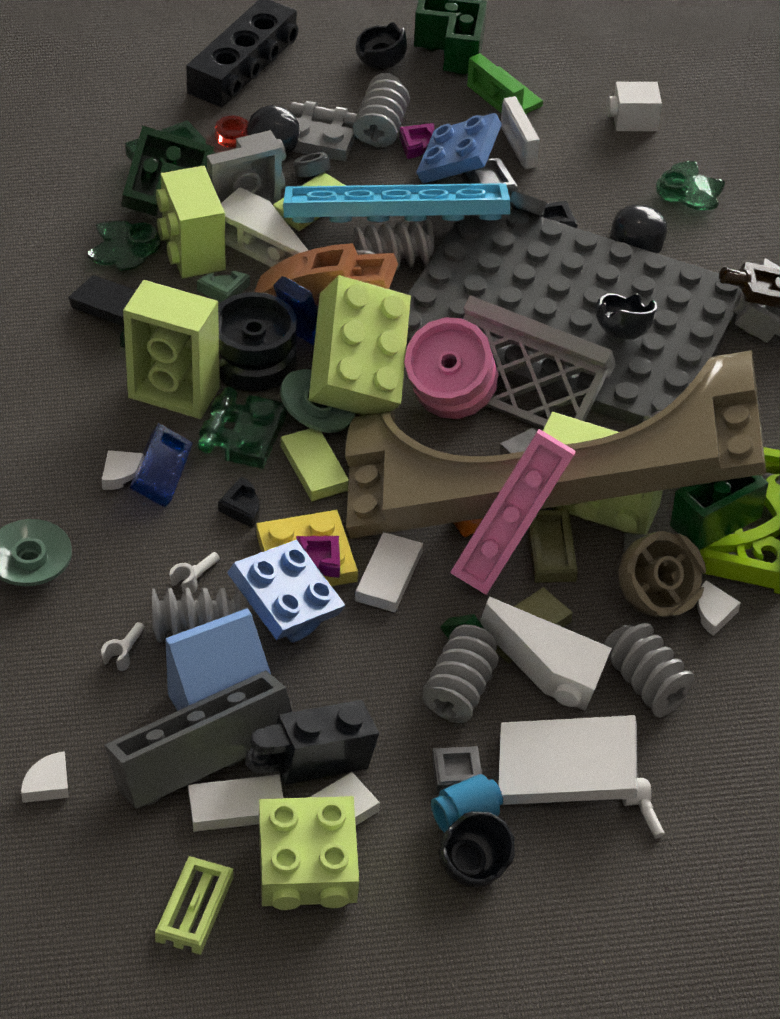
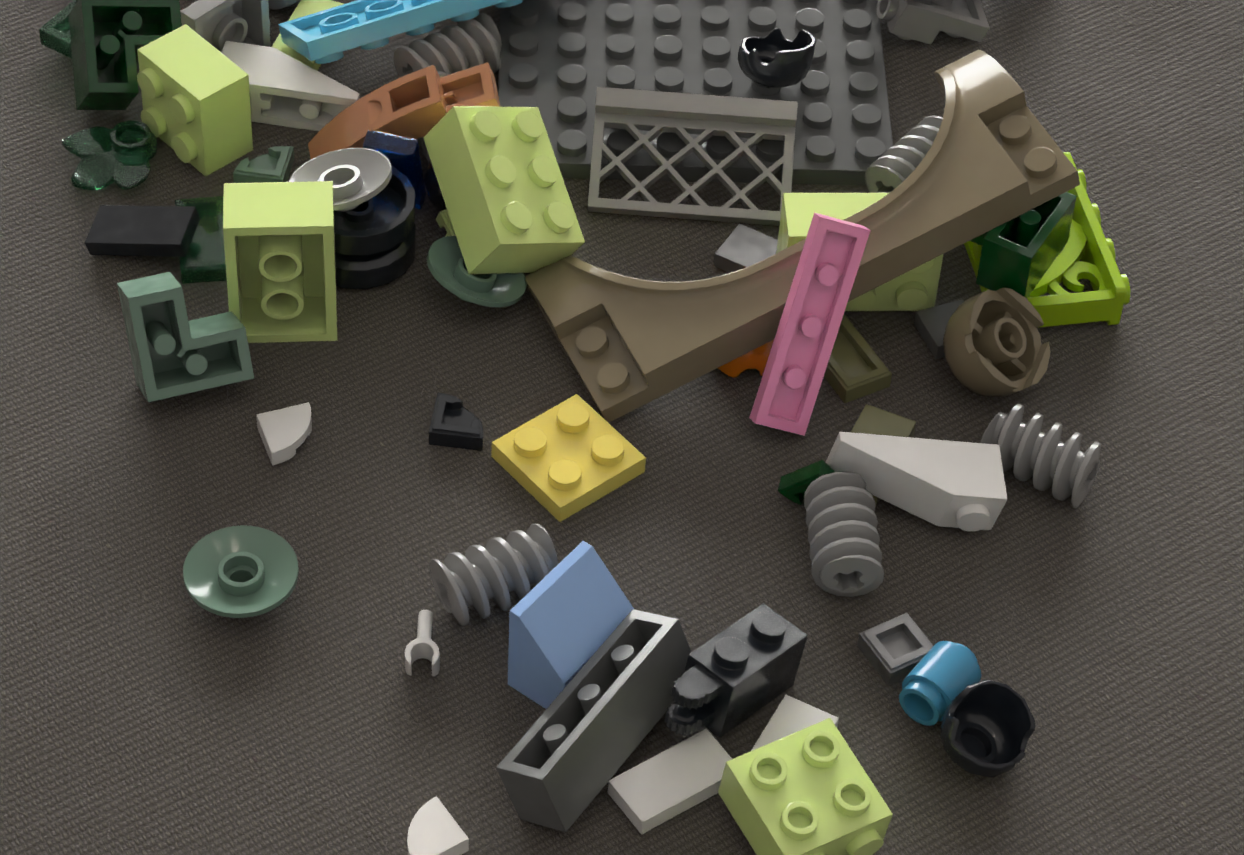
camera: 25 degrees left, 0 degrees up
(73, 390) = (179, 354): none -> sand green brick
(161, 465) = (333, 410): clear blue tile -> none
(191, 573) = (449, 527): white hand -> none
(246, 304) = (355, 174): none -> light grey dish
(254, 432) = (416, 330): clear green plate -> none
(286, 590) = (589, 504): medium blue plate -> none
(314, 463) = (512, 348): yellowish green tile -> none
(323, 552) = (599, 451): magenta tile -> none
(389, 572) = (679, 447): white tile -> none
(451, 368) = (620, 180): bright pink wheel -> none
(568, 760) = (1019, 589): white tile -> none
(646, 807) = (1113, 599): white hand -> none
(716, 608) = (1065, 364): white tile -> none

